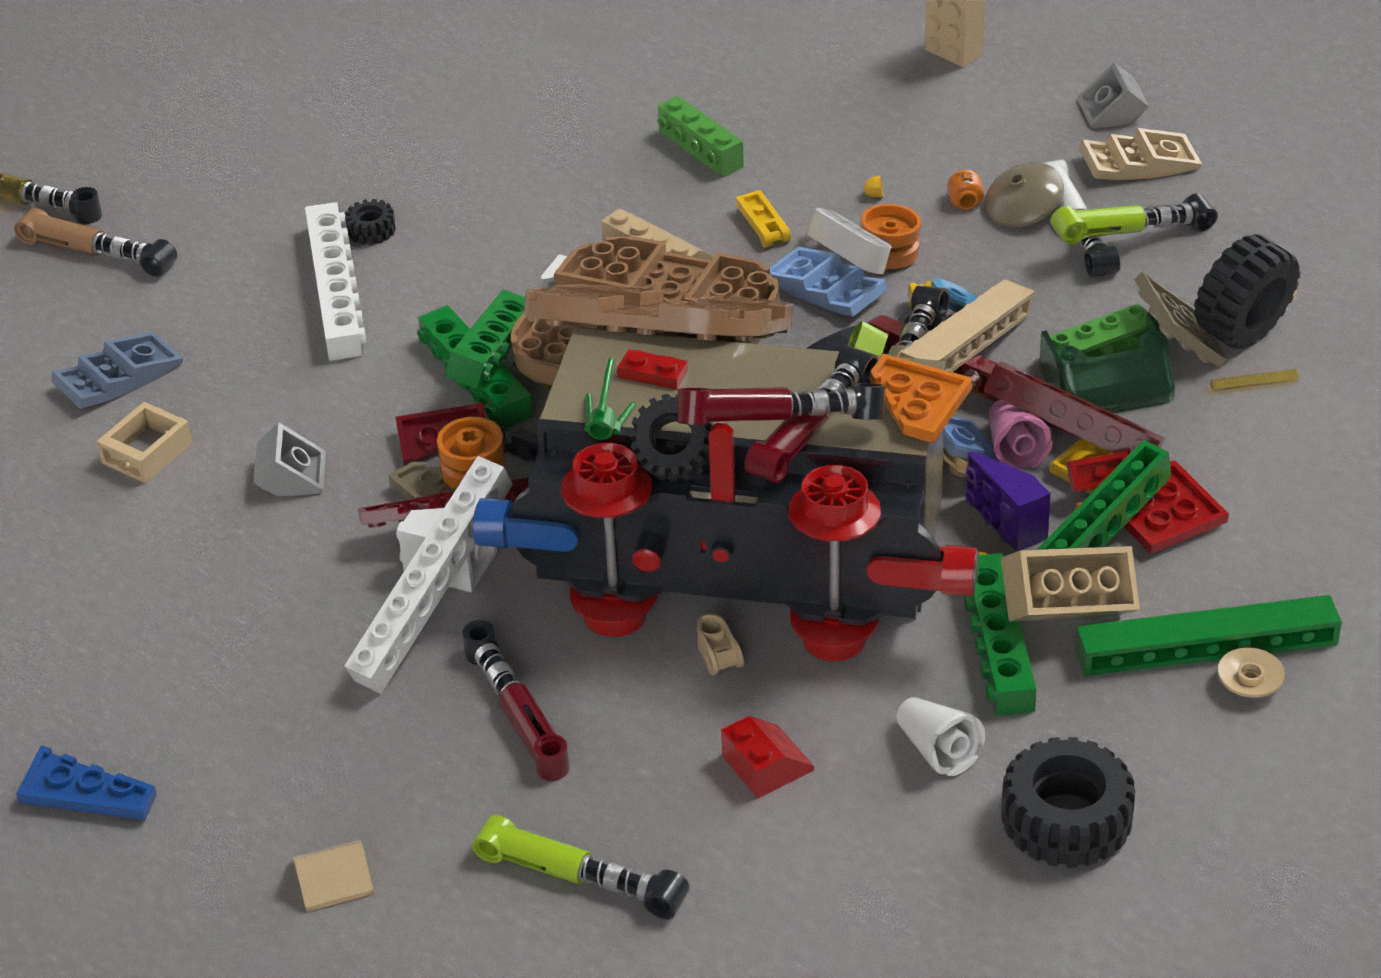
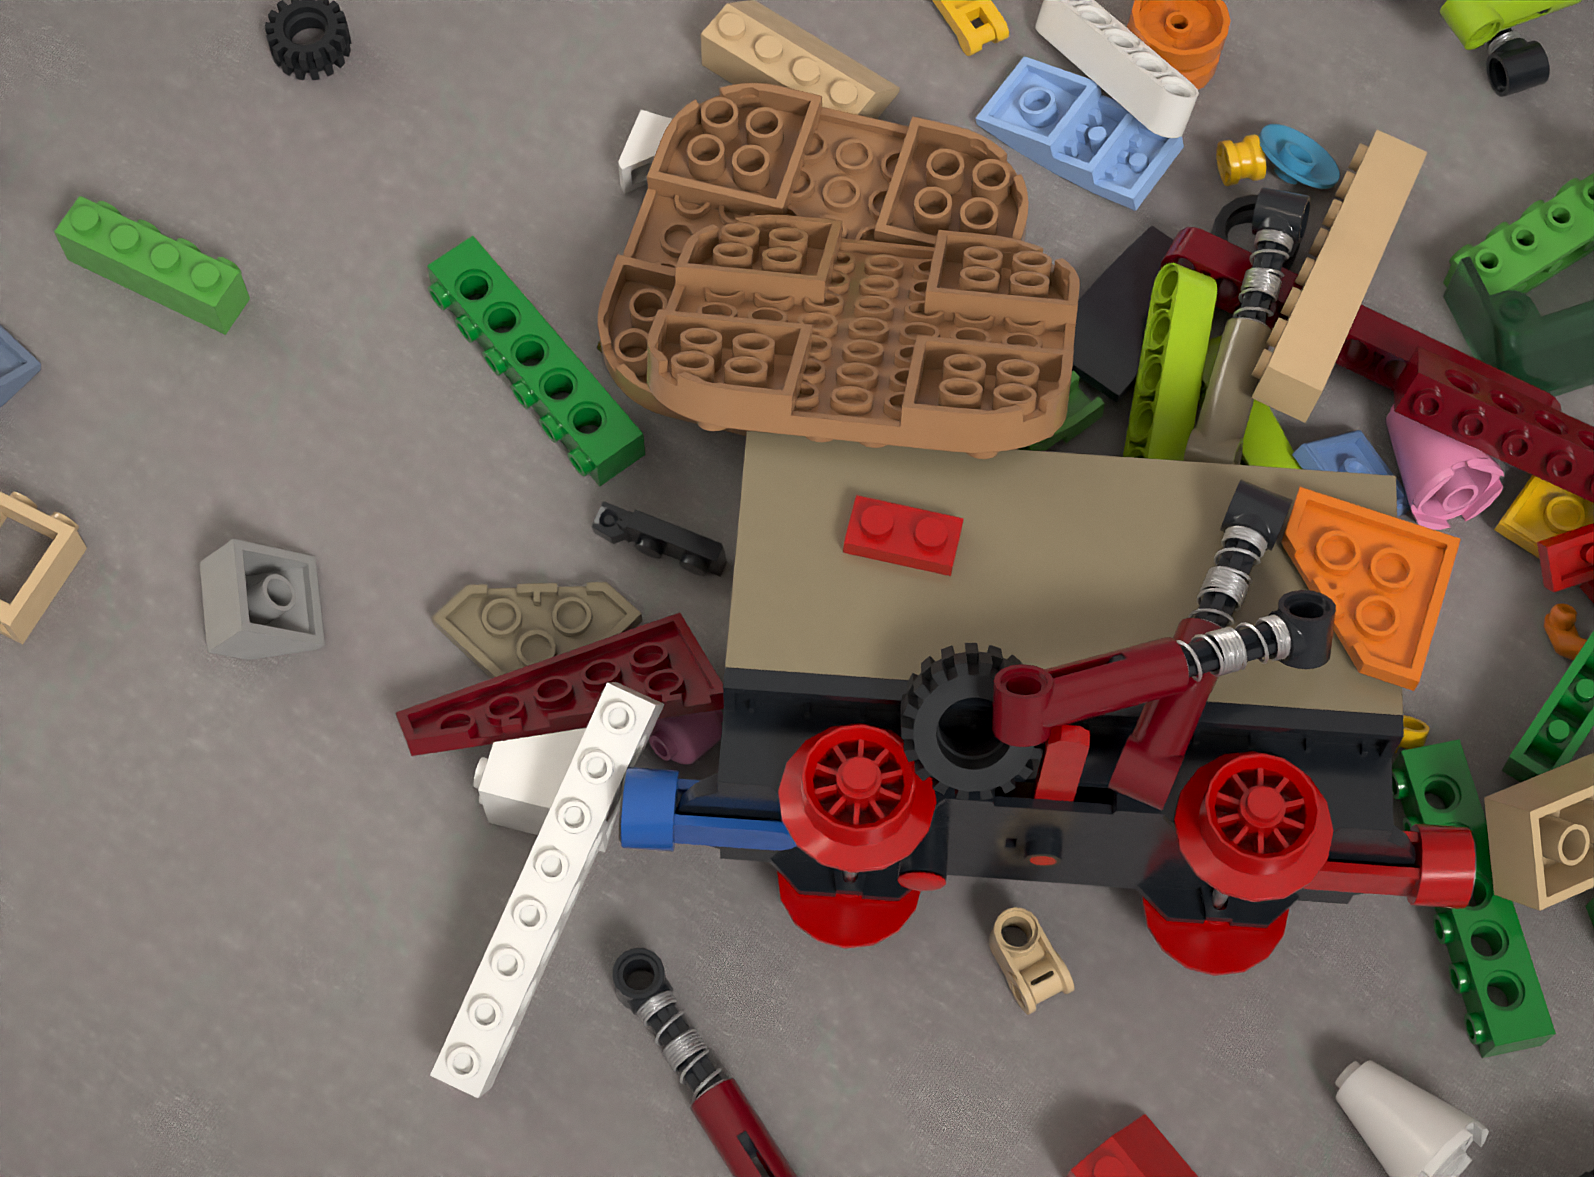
camera: 10 degrees left, 25 degrees up
(258, 315) = (153, 264): none -> bright green brick
(335, 281) = (304, 314): white brick -> none
(420, 430) = (495, 507): dark red wing -> none
(465, 440) = (568, 583): orange wheel -> none
(486, 341) = (560, 327): green brick -> none
(602, 420) = (840, 683): green plant -> none
(1008, 500) = (1475, 638): dark purple slope -> none

